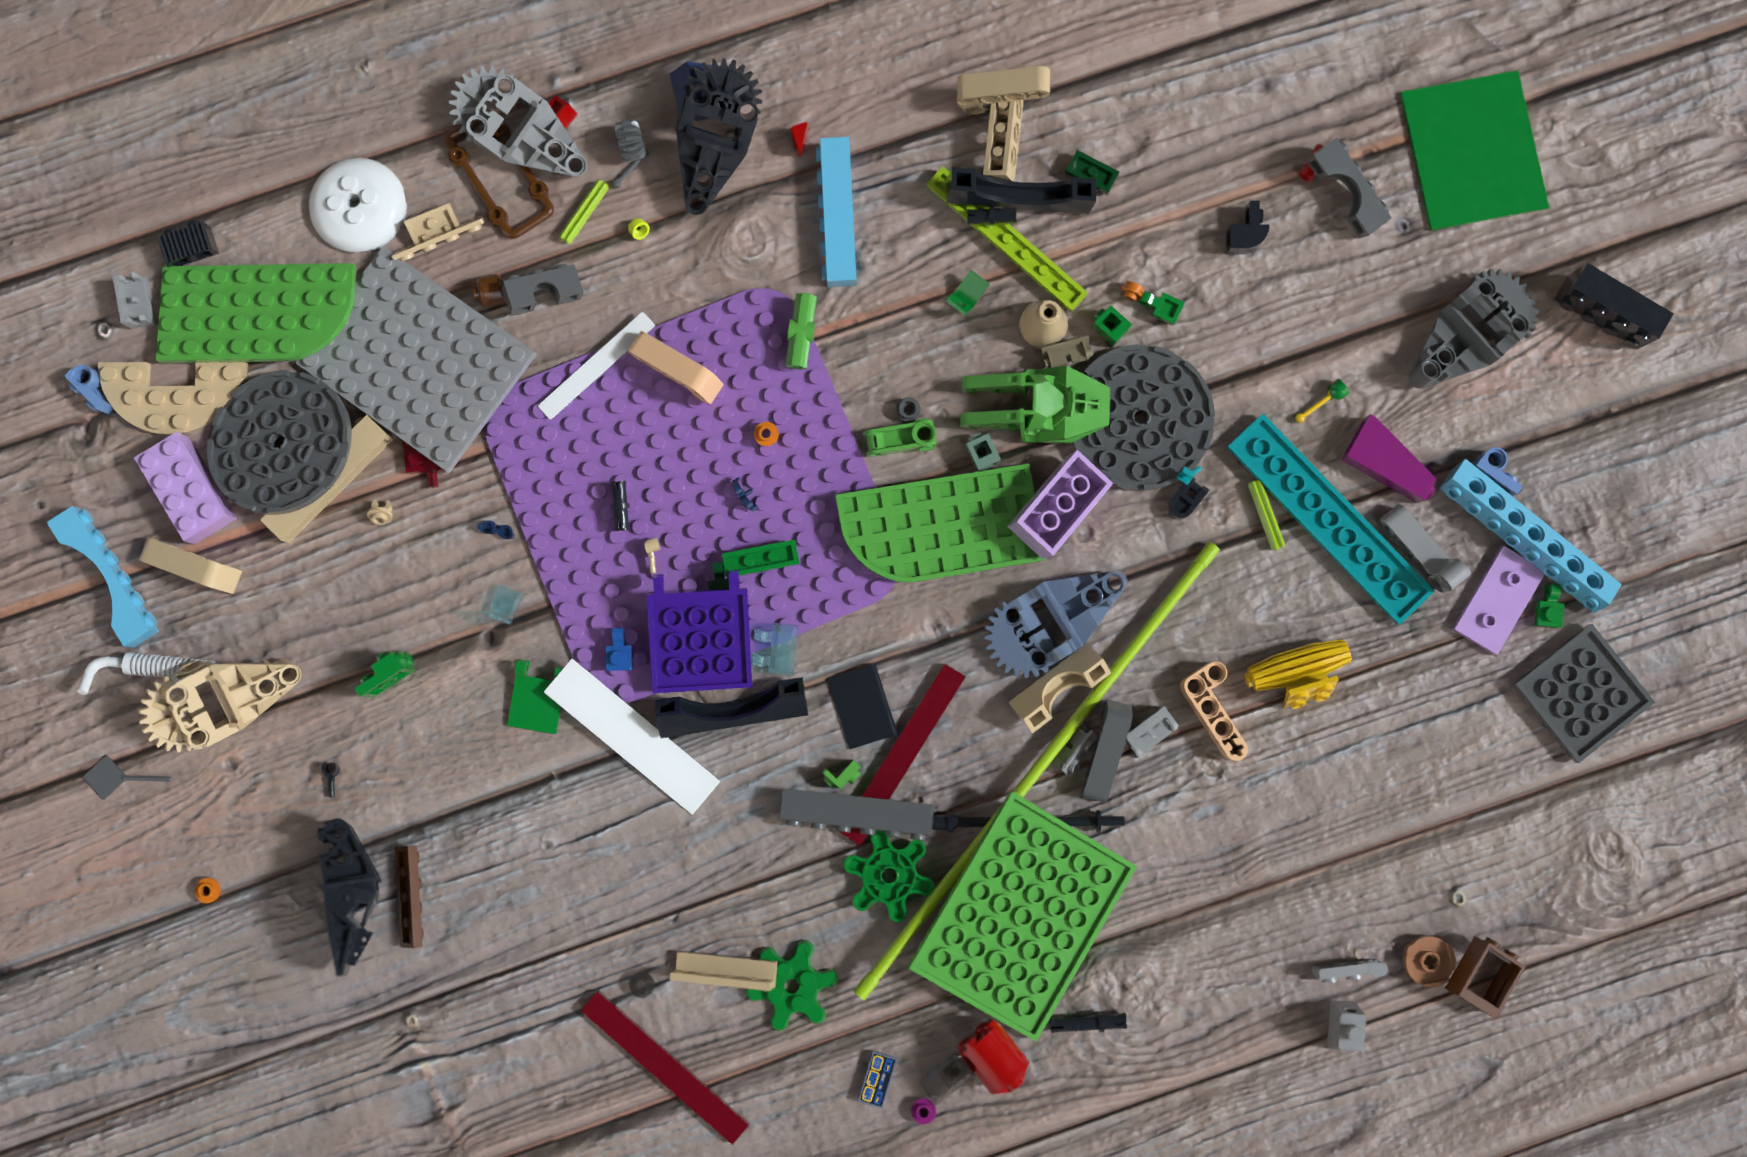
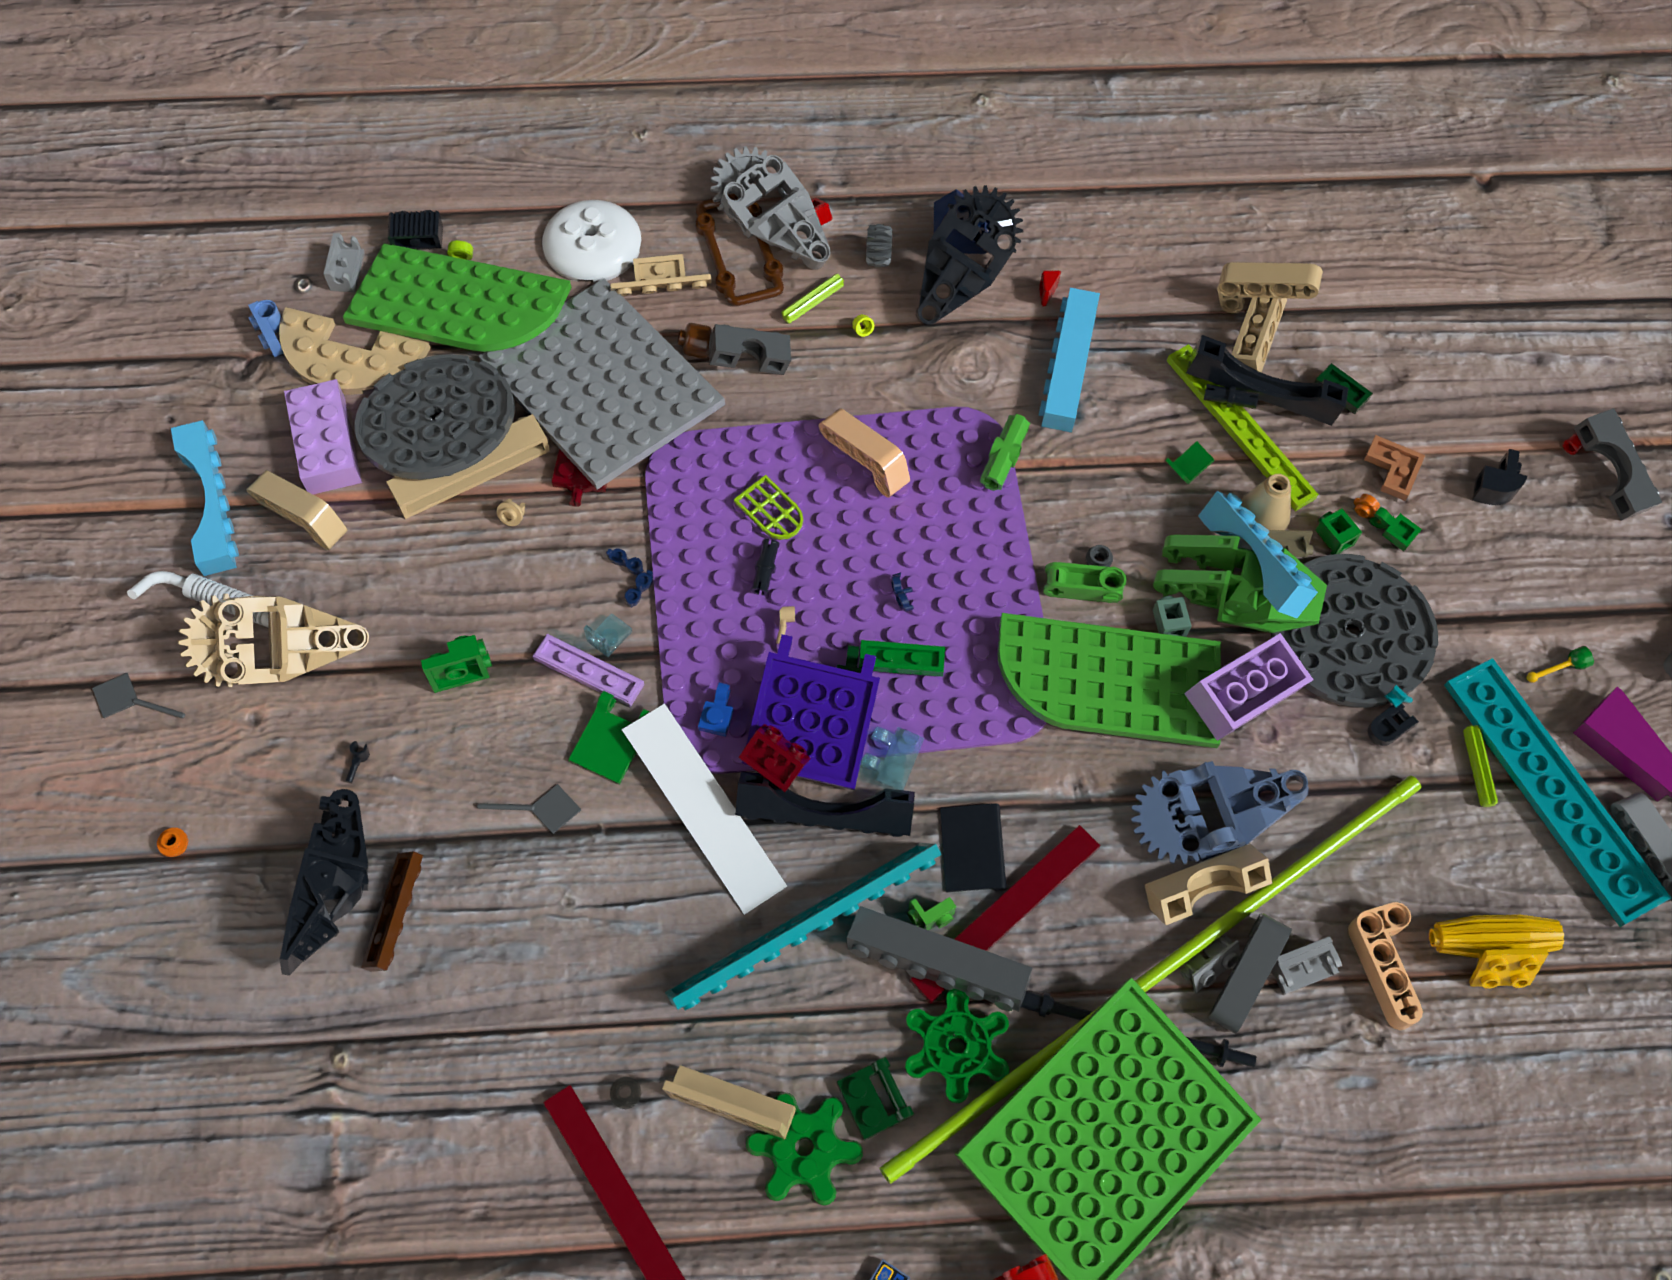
camera: 15 degrees right, 20 degrees down
(238, 255) = (460, 250): none -> lime tile
(497, 641) = (588, 670): none -> lavender tile
(509, 771) = (552, 809): none -> dark grey piece
(517, 545) = (643, 582): none -> dark blue piece
(595, 366) = (776, 435): white sticker -> none
(605, 436) = (770, 499): none -> lime window
(616, 183) = (852, 283): dark grey hinge -> none
(679, 683) = (774, 756): none -> dark red bracket
(745, 811) = (795, 929): none -> teal plate
(772, 439) = (941, 545): orange plate -> none
(829, 939) = (865, 1103): none -> dark green plate
(1070, 411) = (1283, 583): none -> medium azure arch
(1158, 239) = (1401, 463): none -> nougat plate

